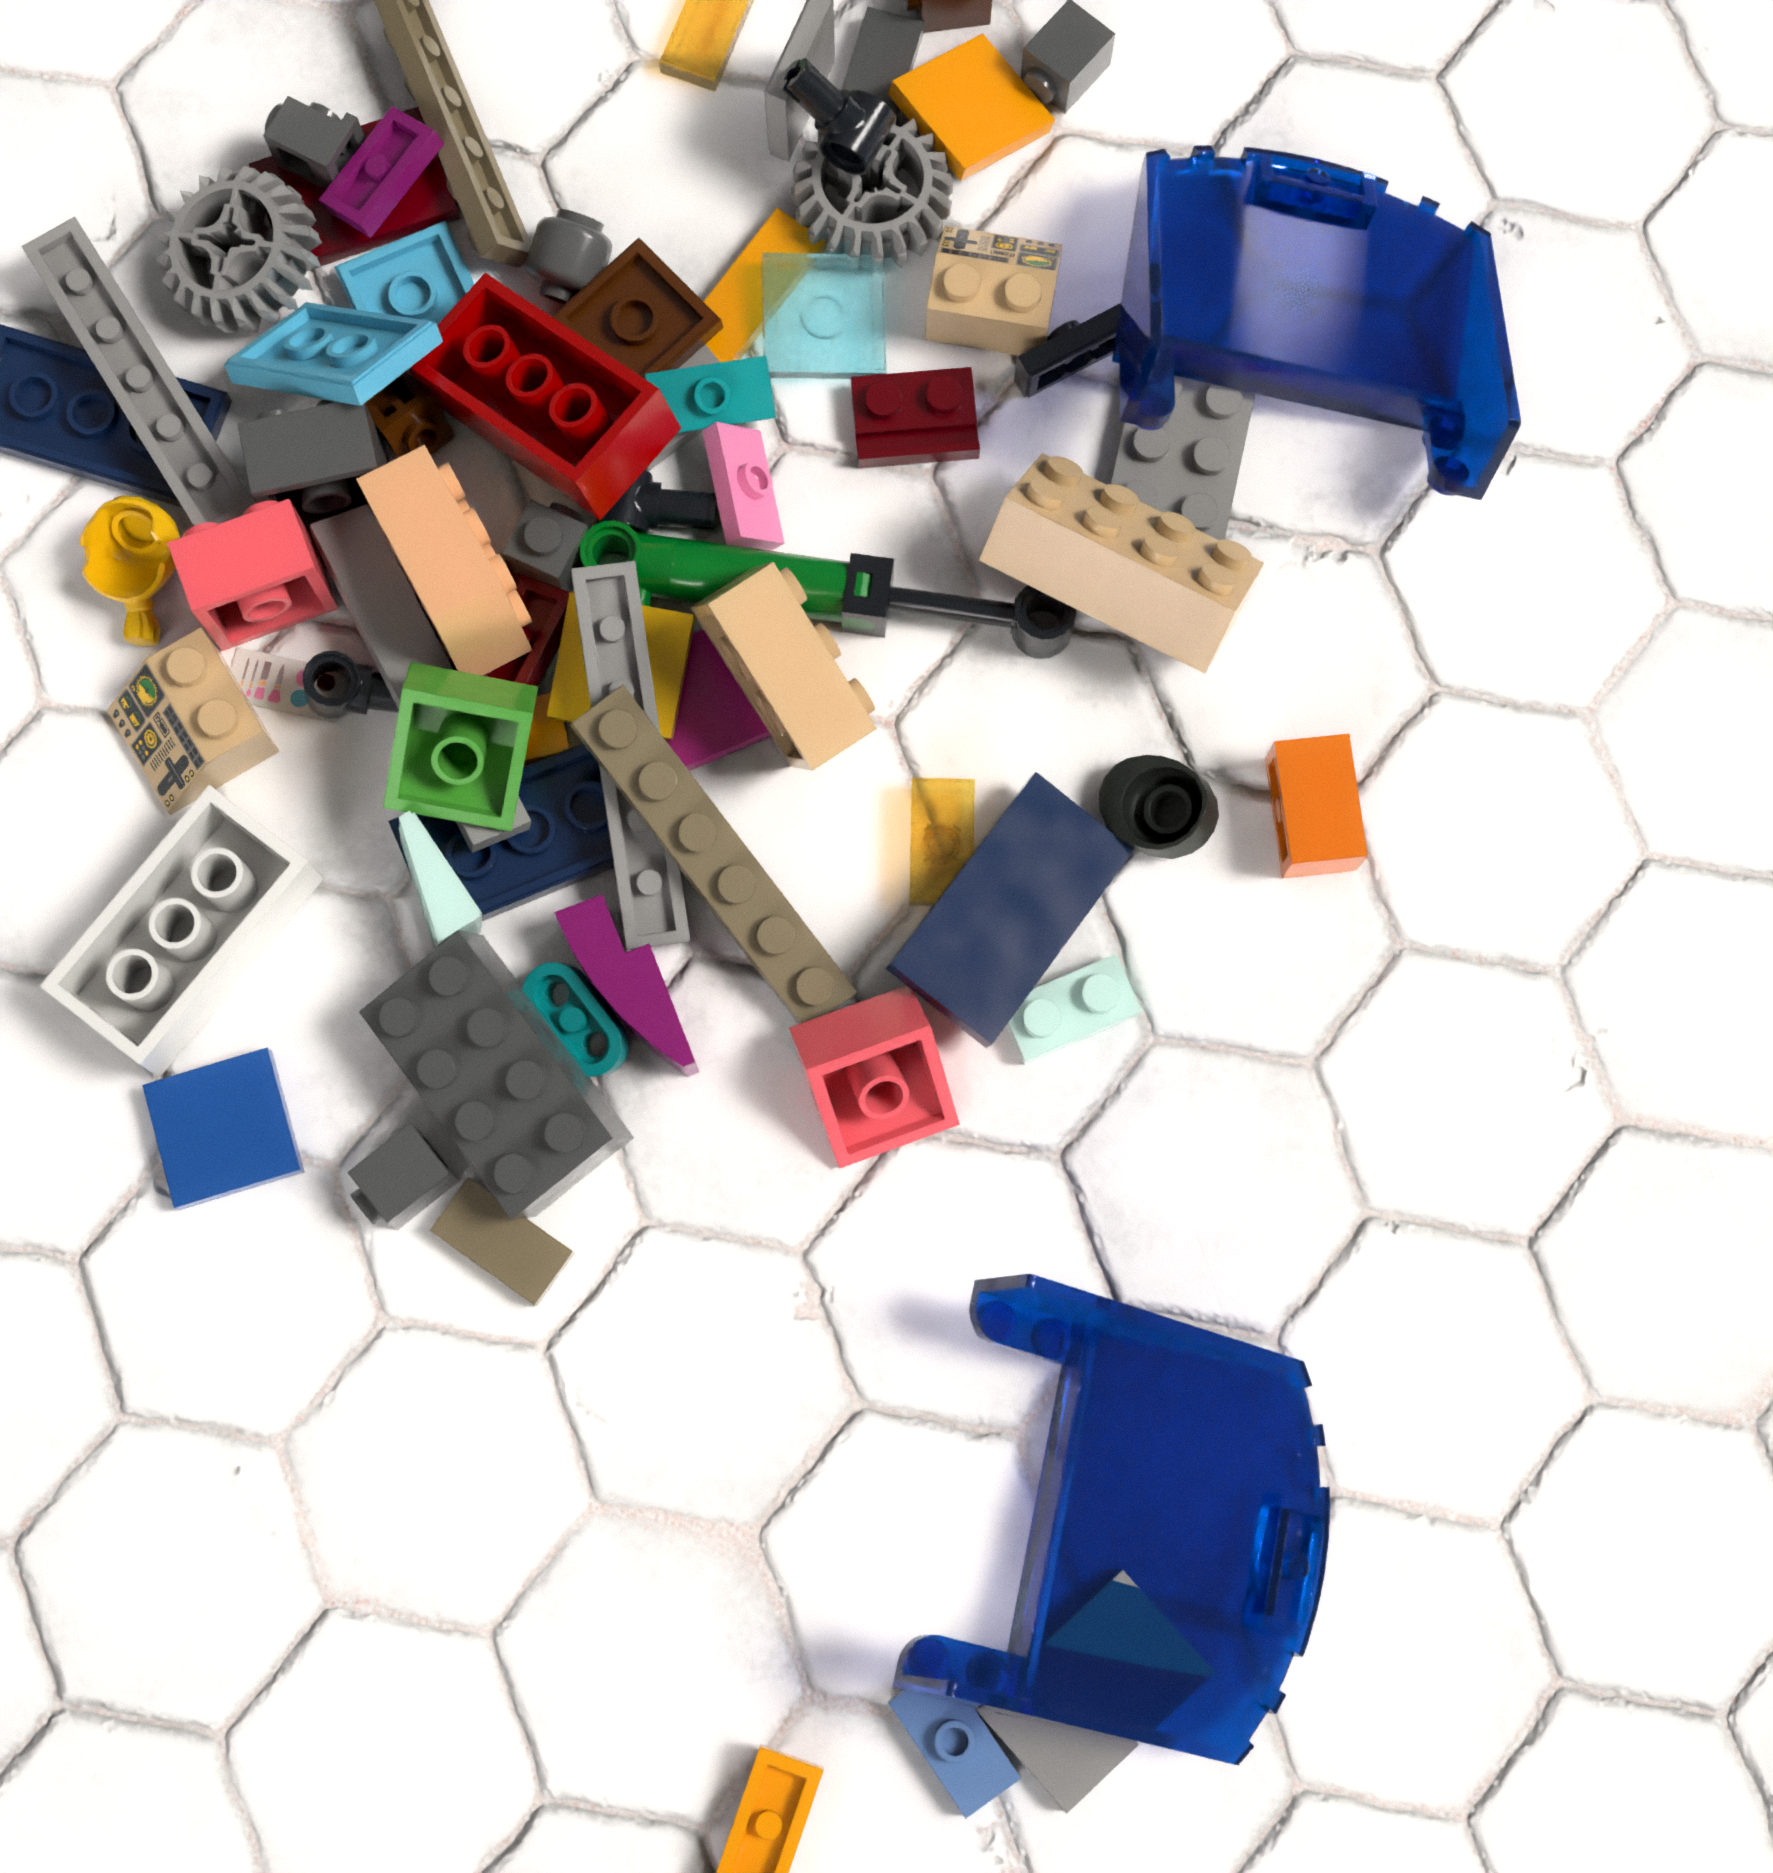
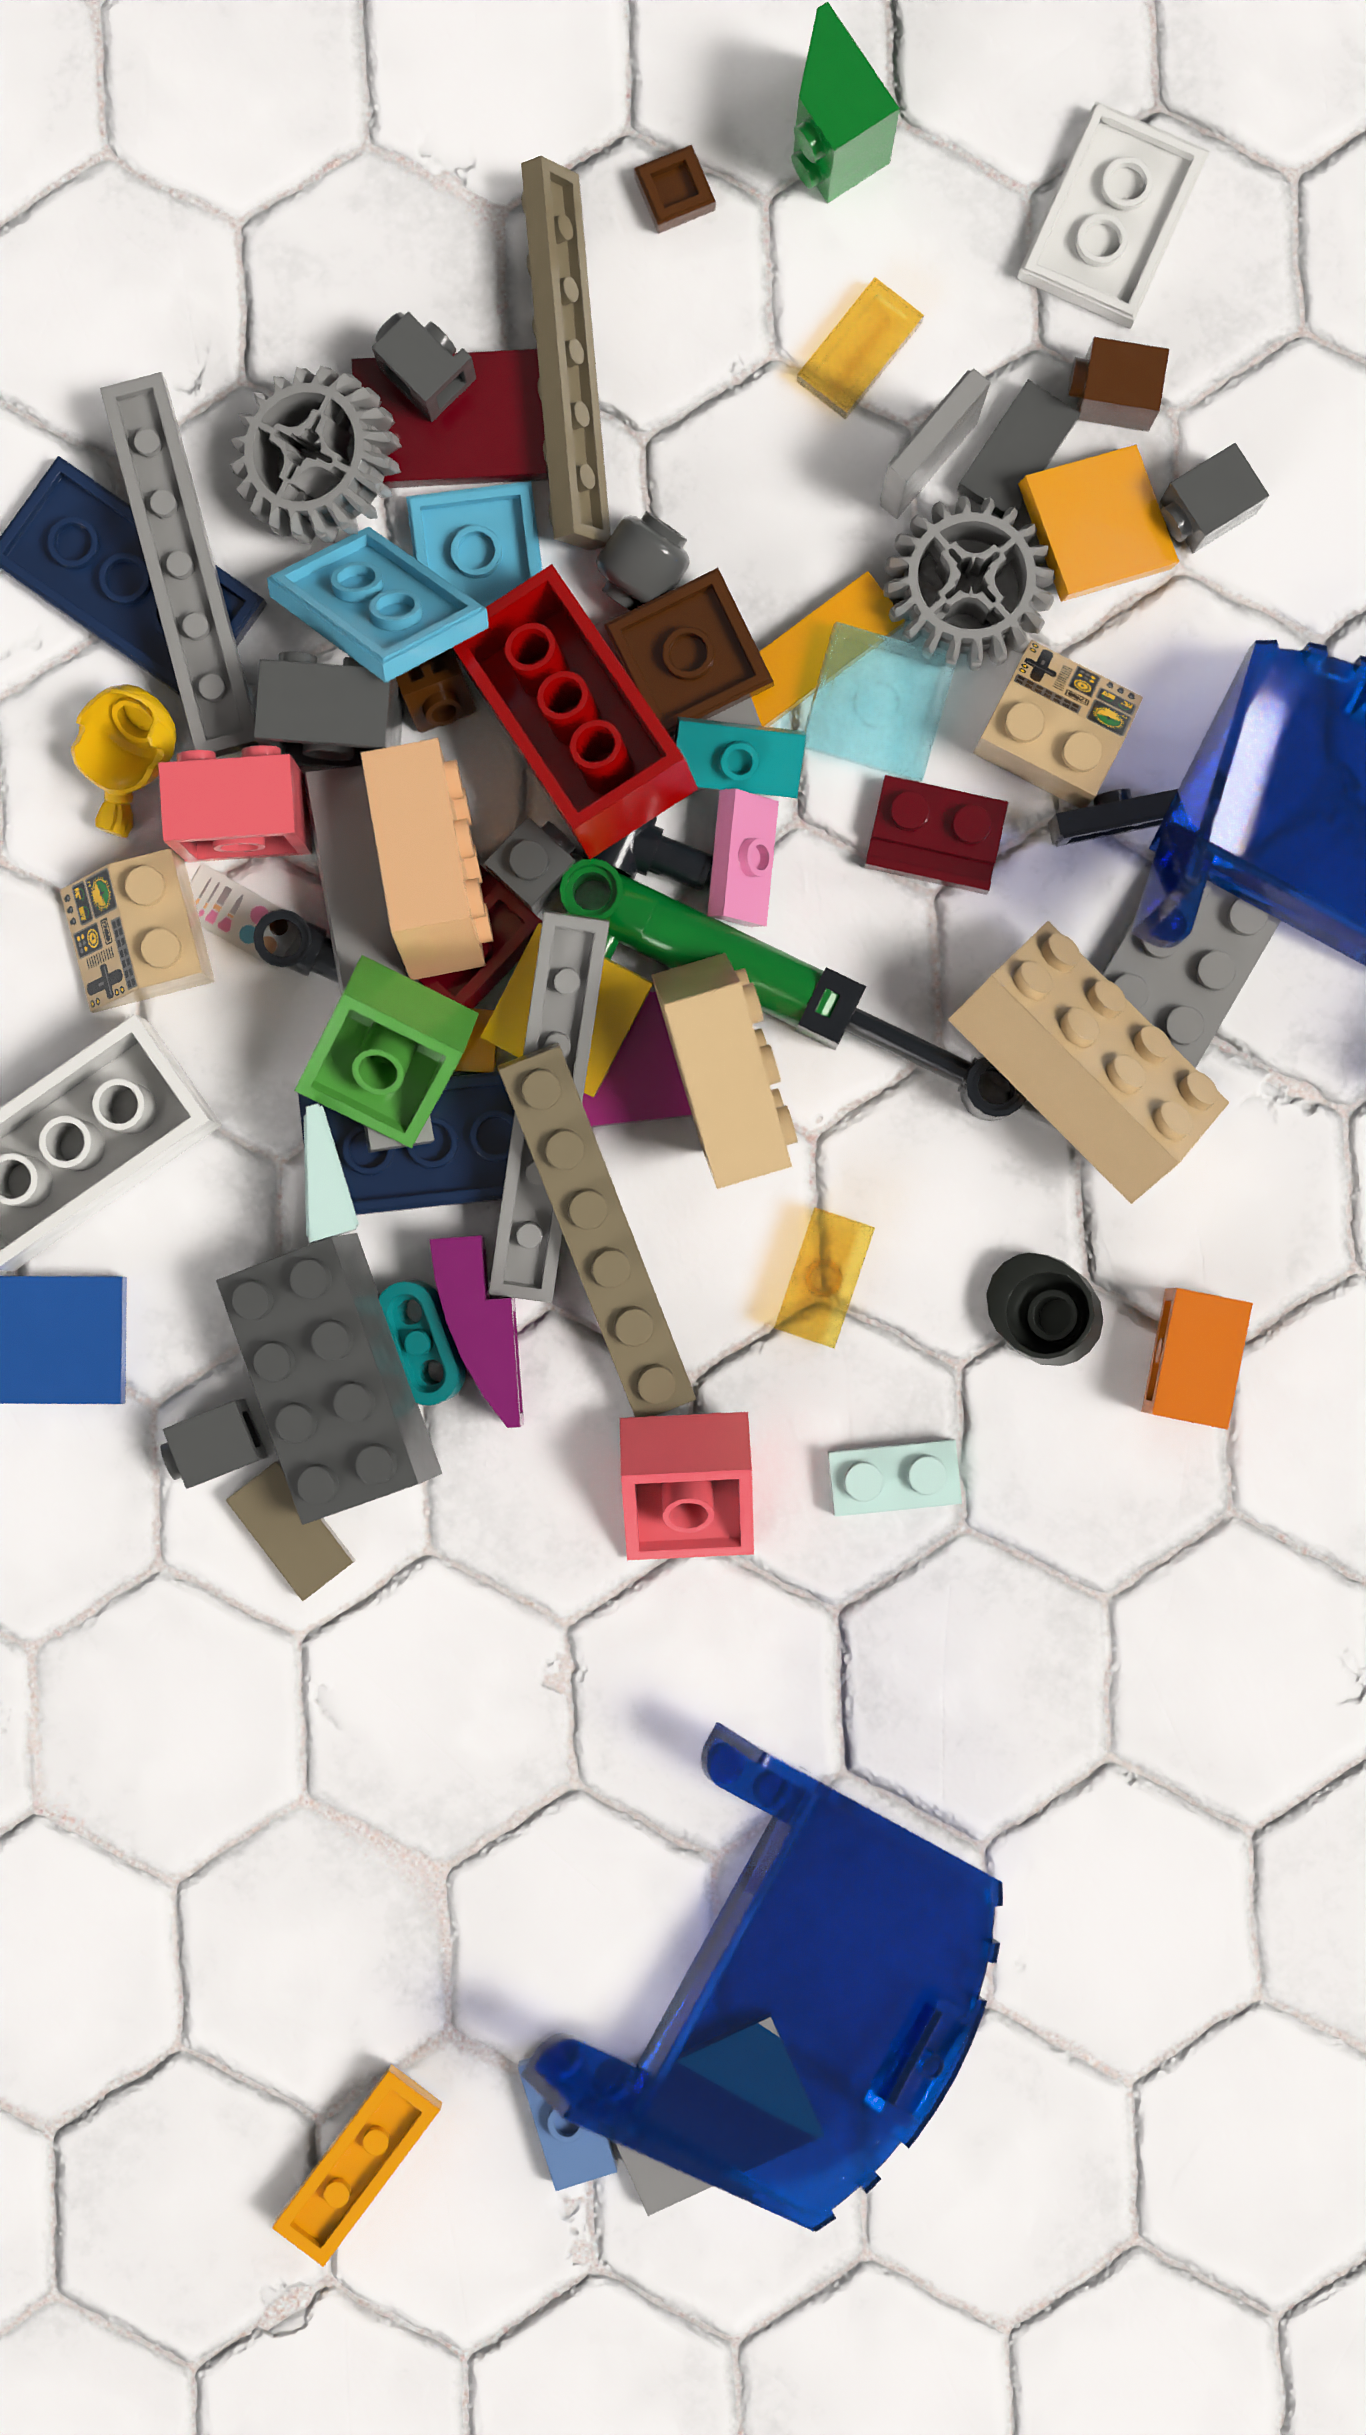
camera: 20 degrees right, 10 degrees up
(381, 171) = (481, 416): magenta plate -> none
(850, 121) = (964, 516): black pin -> none
(1010, 910) = (867, 1369): dark blue tile -> none

